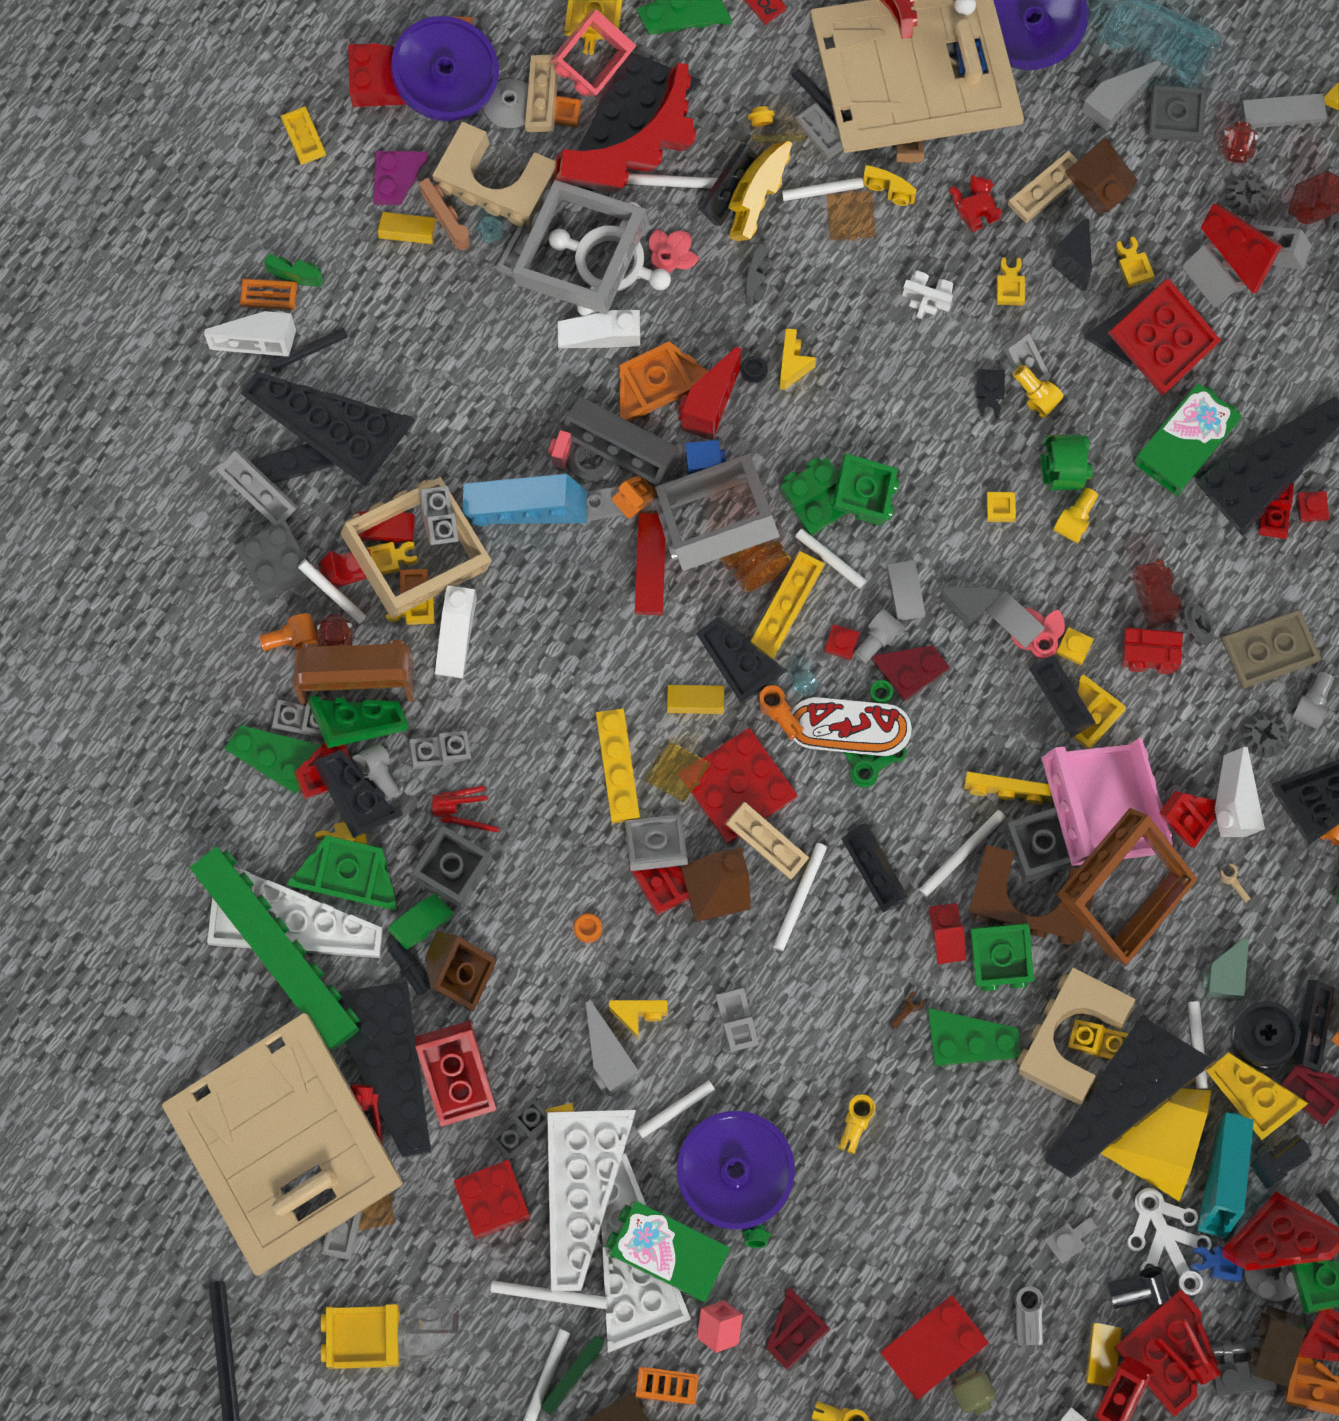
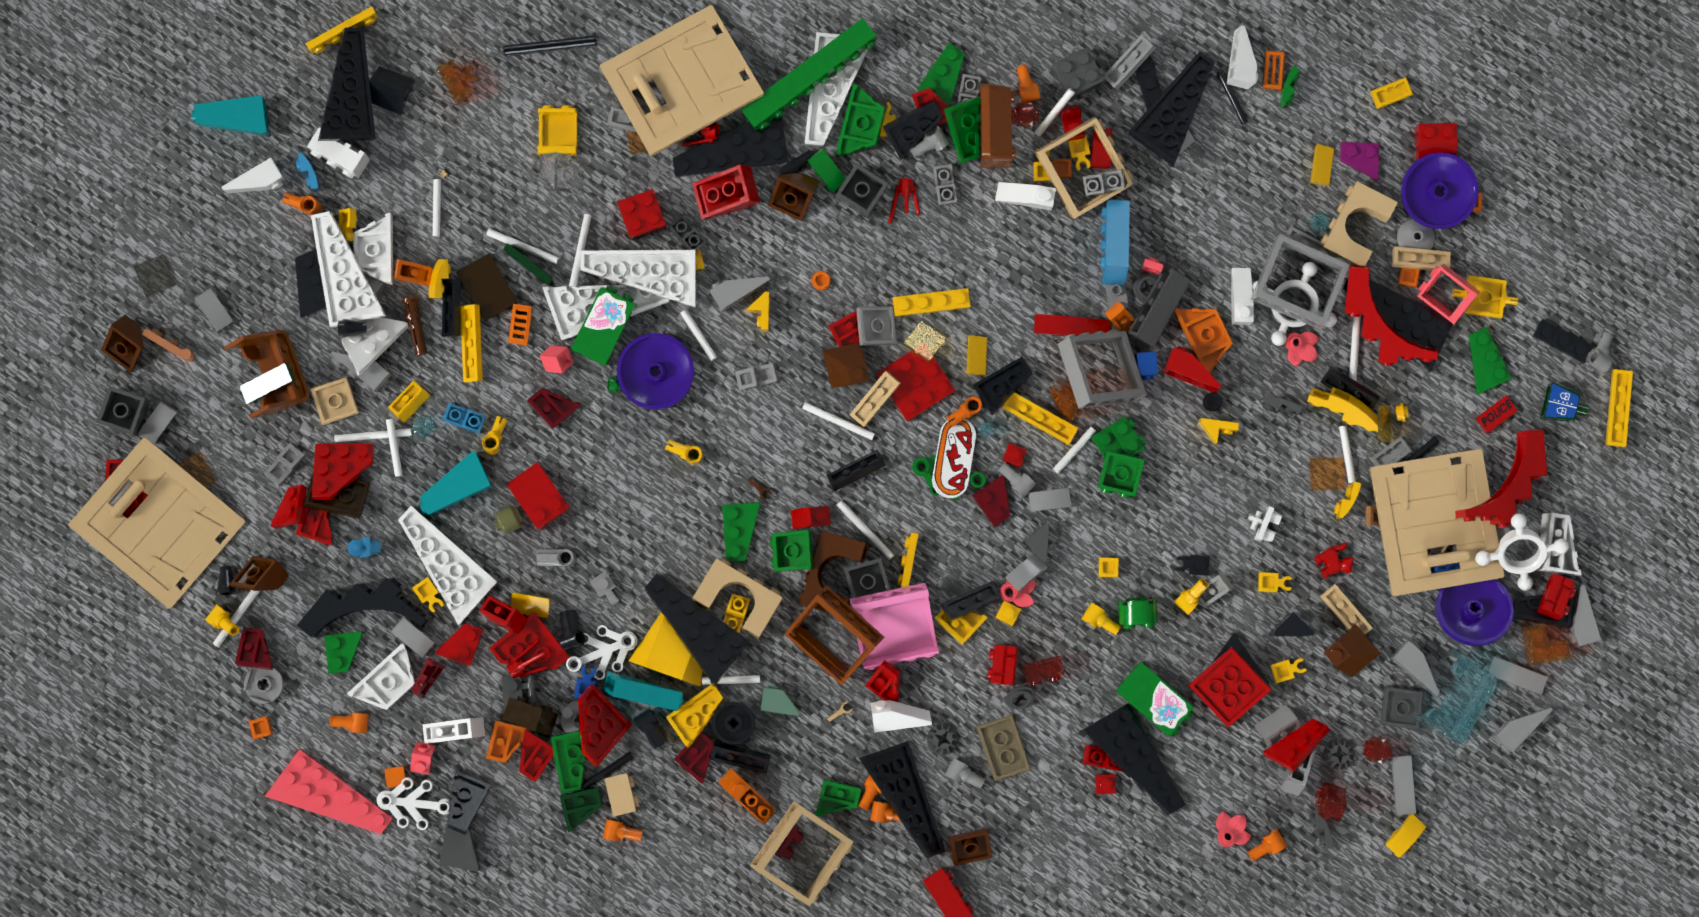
camera: 85 degrees right, 10 degrees up
(446, 215) = (1329, 191): nougat plate -> none

